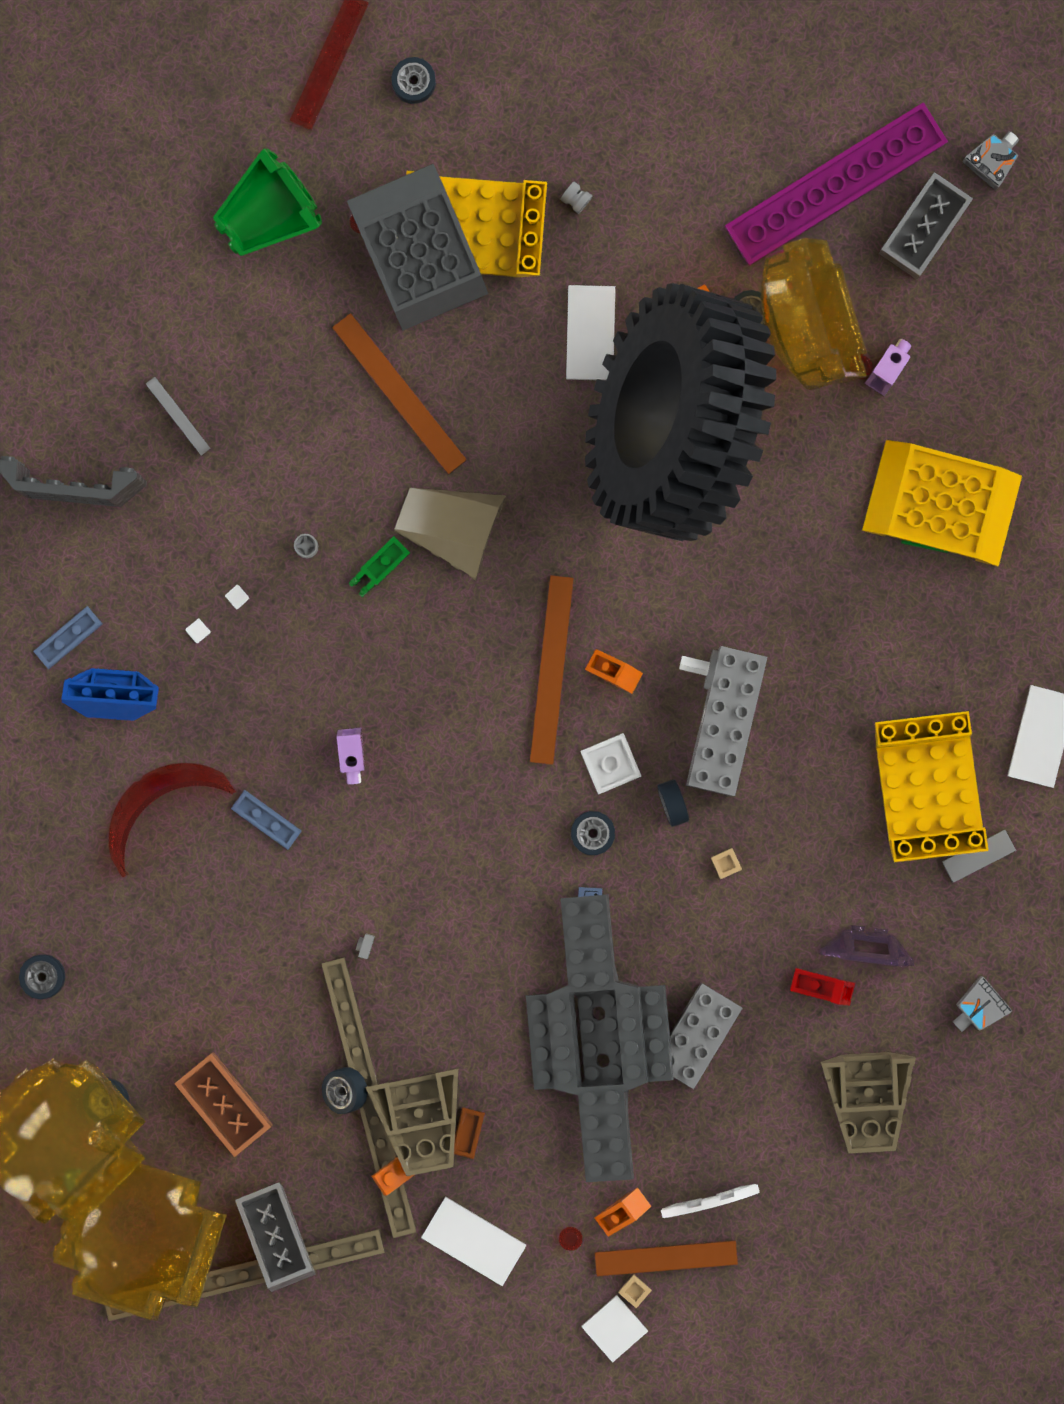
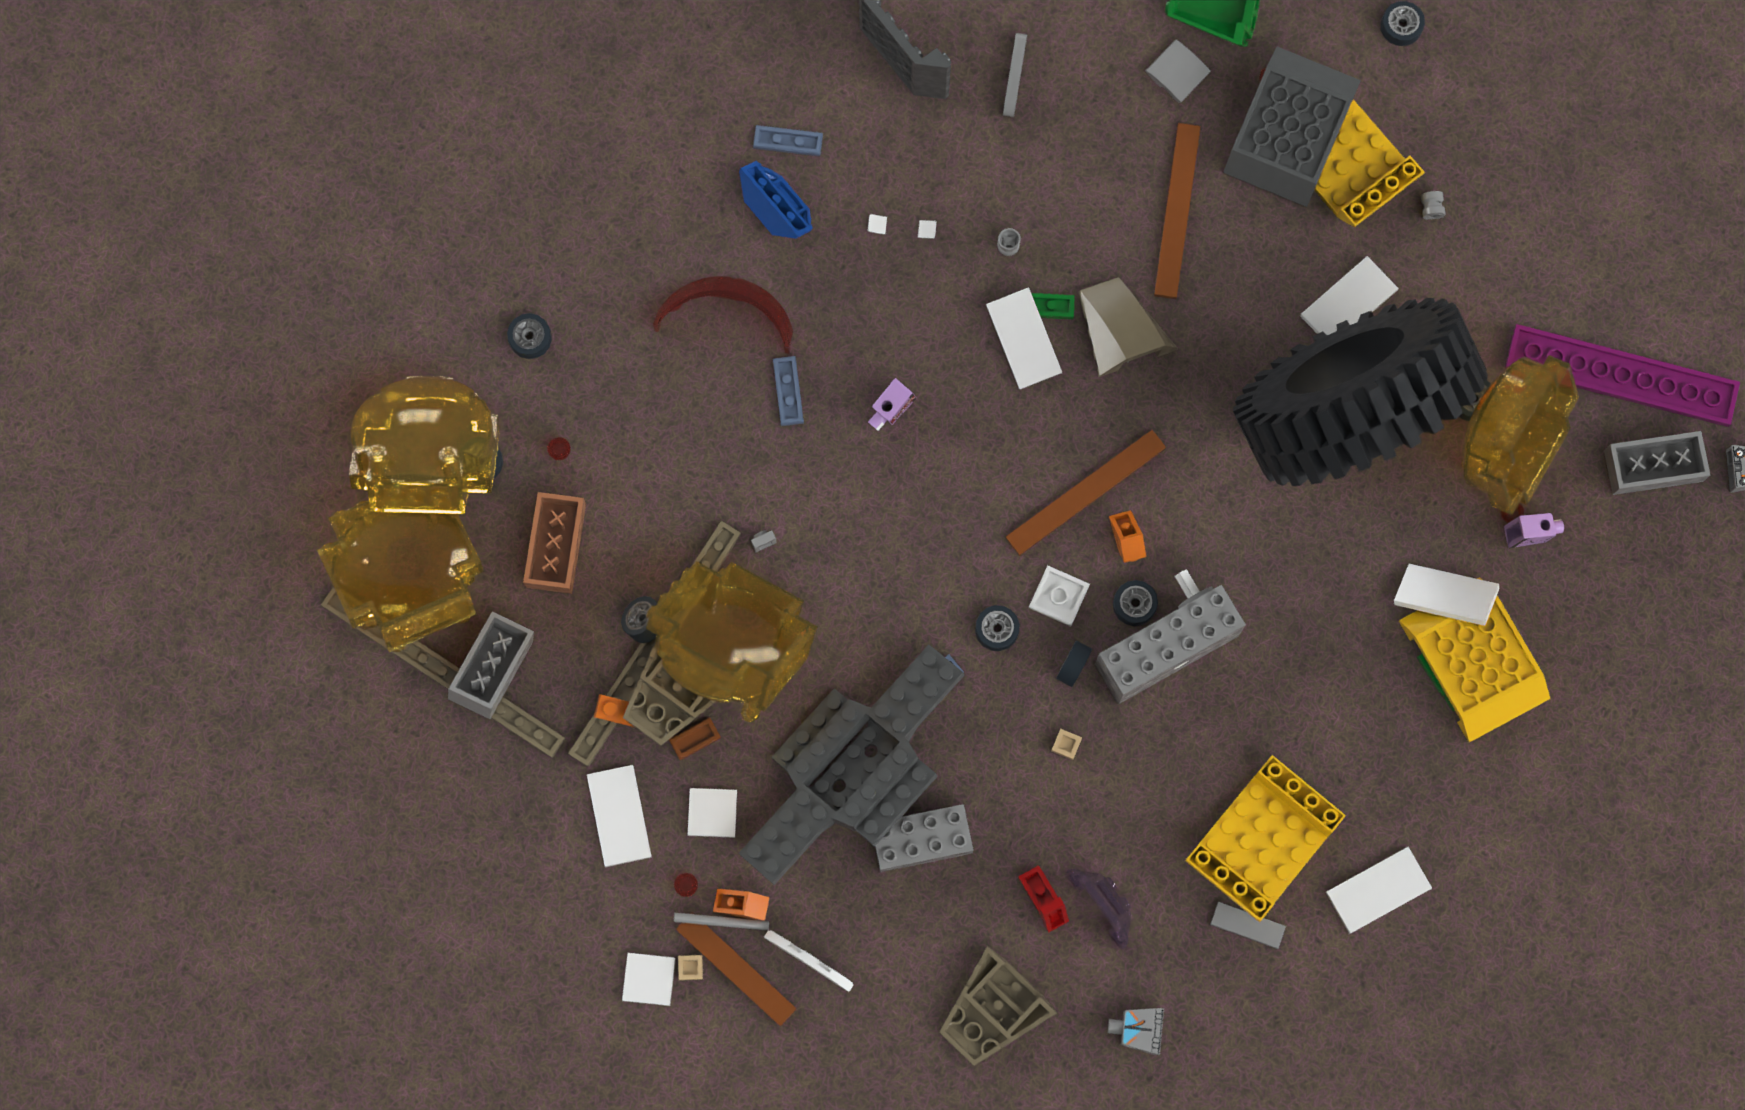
camera: 50 degrees right, 10 degrees down
(151, 1033) = (559, 448): none -> clear red plate
(290, 288) = (1178, 71): none -> light grey slope
(392, 605) = (1024, 338): none -> white tile
(421, 1043) = (730, 636): none -> clear yellow windscreen
(535, 1170) = (712, 812): none -> white tile
(620, 1239) = (721, 921): none -> light grey bar
(675, 702) = (1133, 591): none -> wheel
(878, 480) = (1446, 594): none -> white tile

